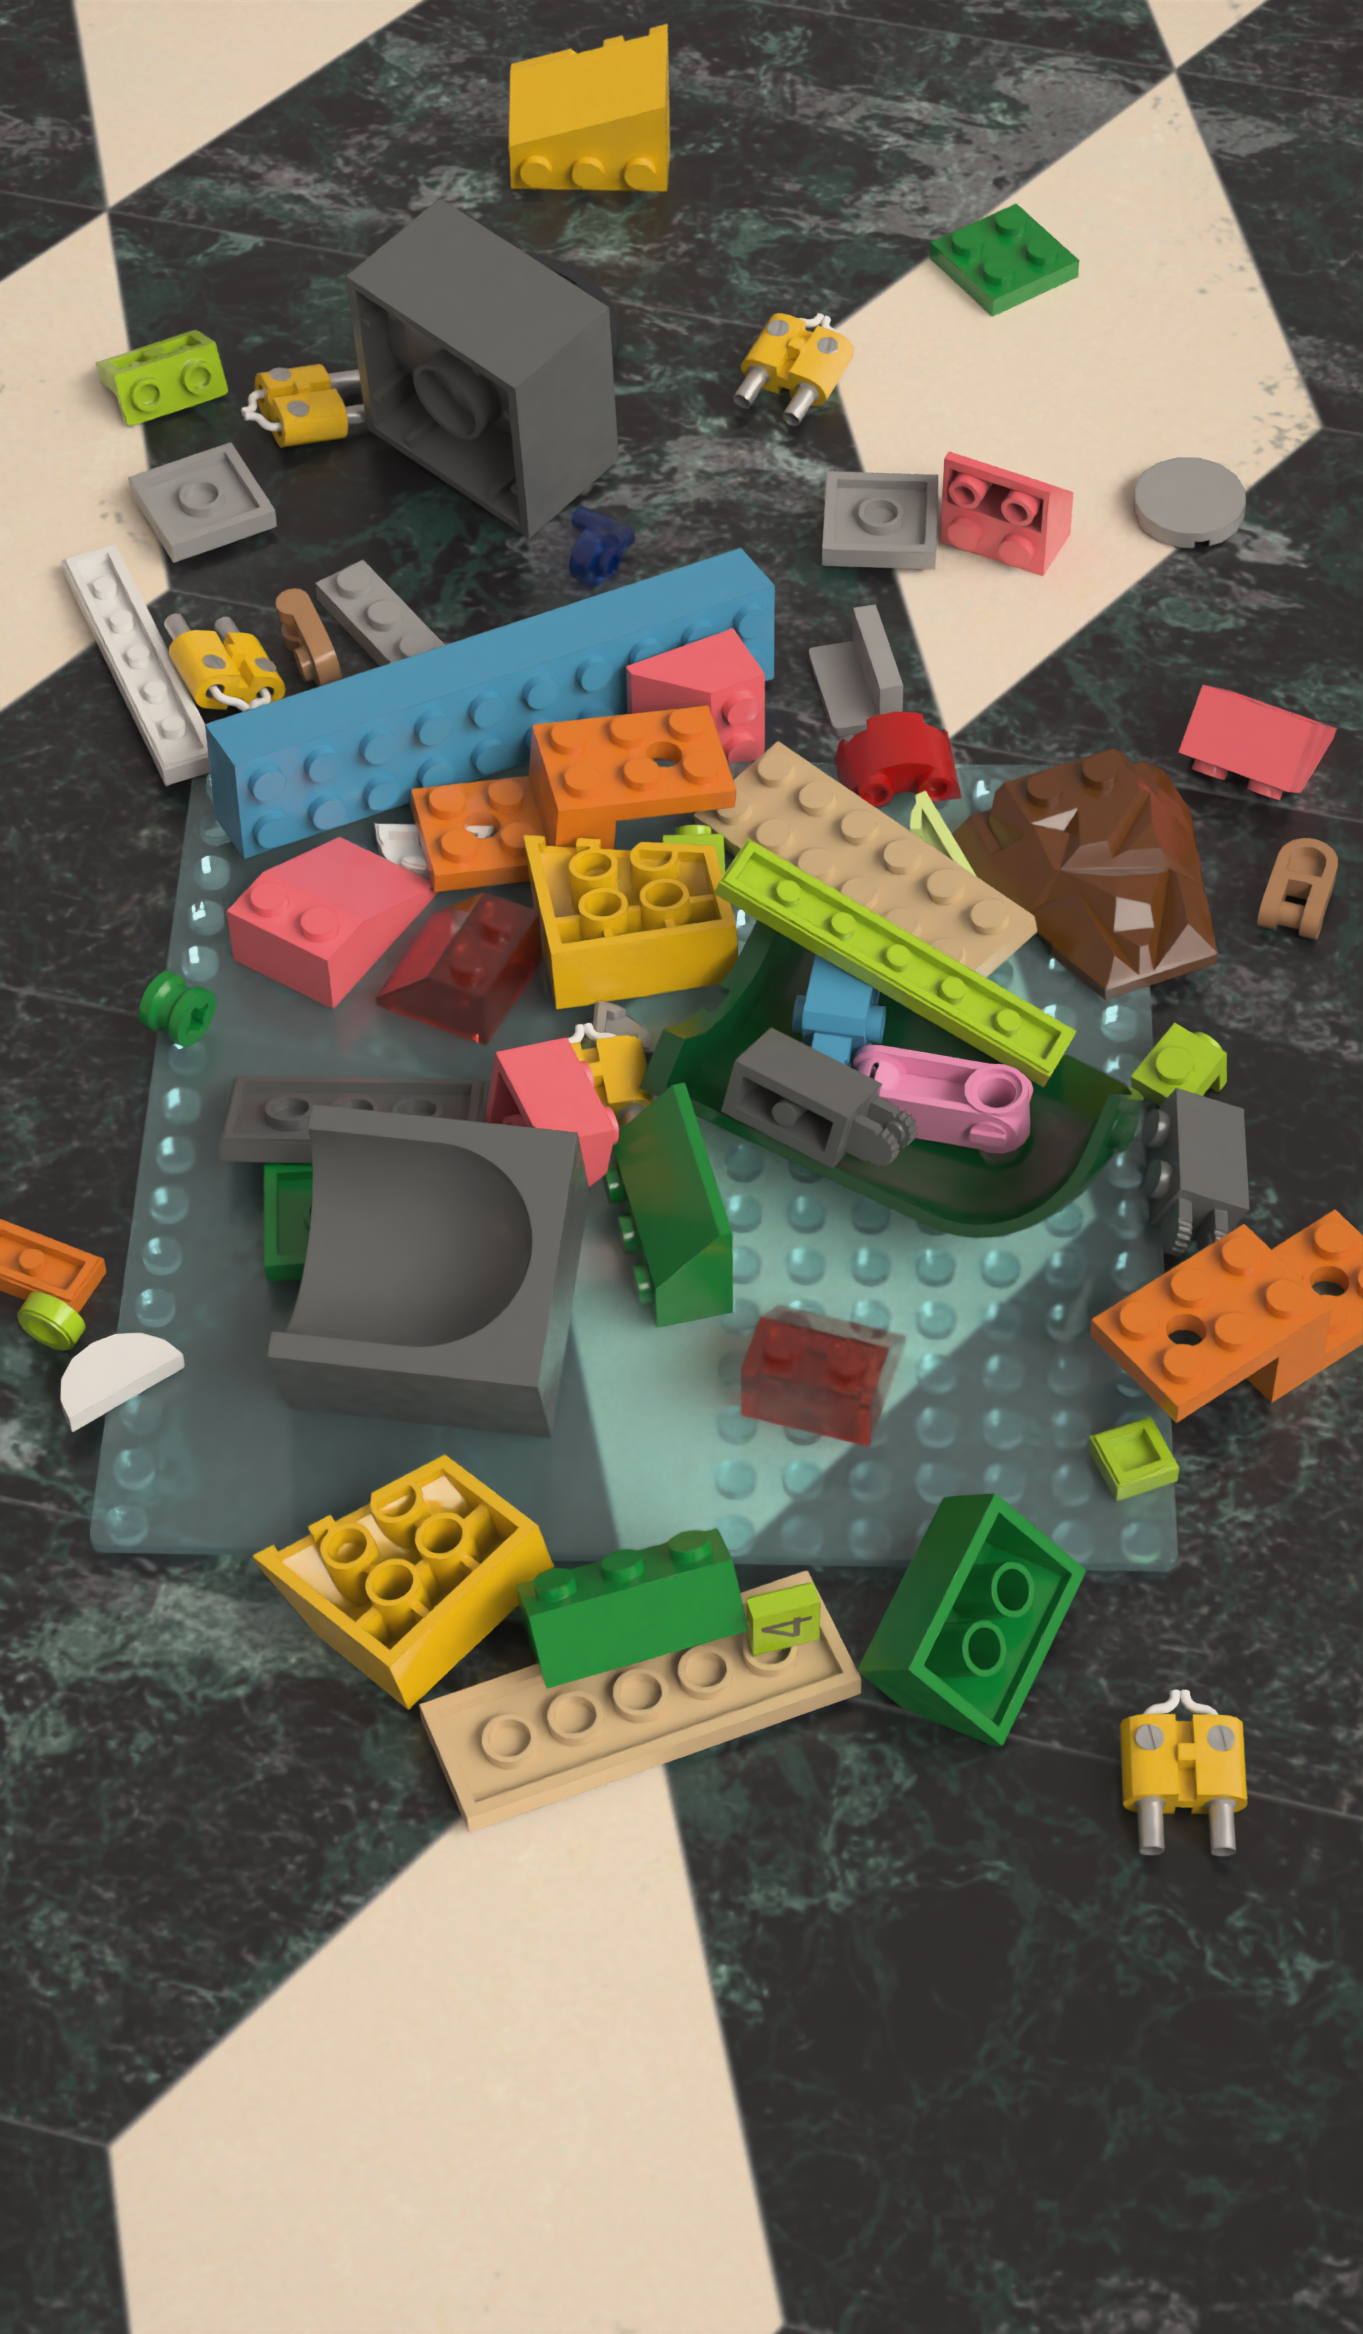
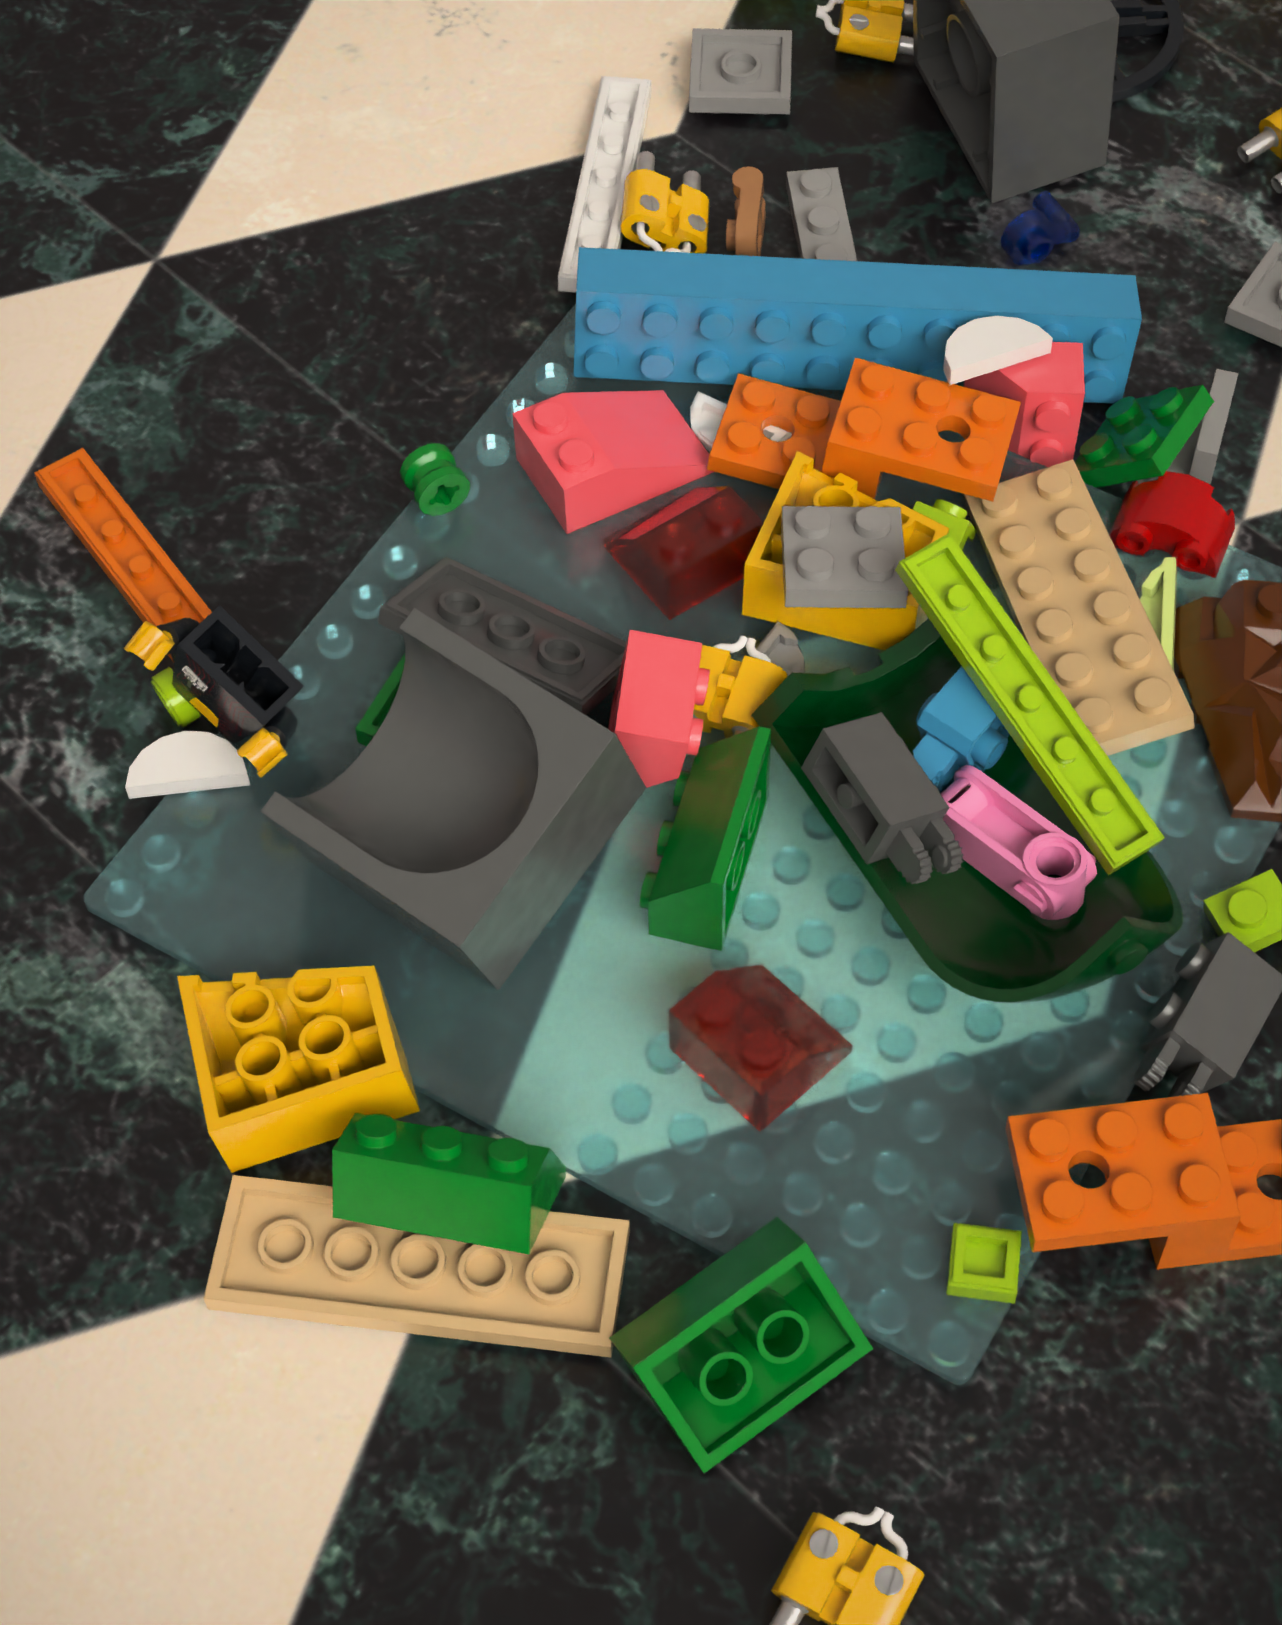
camera: 30 degrees right, 5 degrees up
(126, 1273) = (227, 681): none -> black torso
(641, 908) = (842, 557): none -> light grey plate
(656, 661) = (992, 345): none -> white tile
(783, 1618) = (566, 1257): lime tile -> none
(824, 695) = (1142, 436): none -> green plate

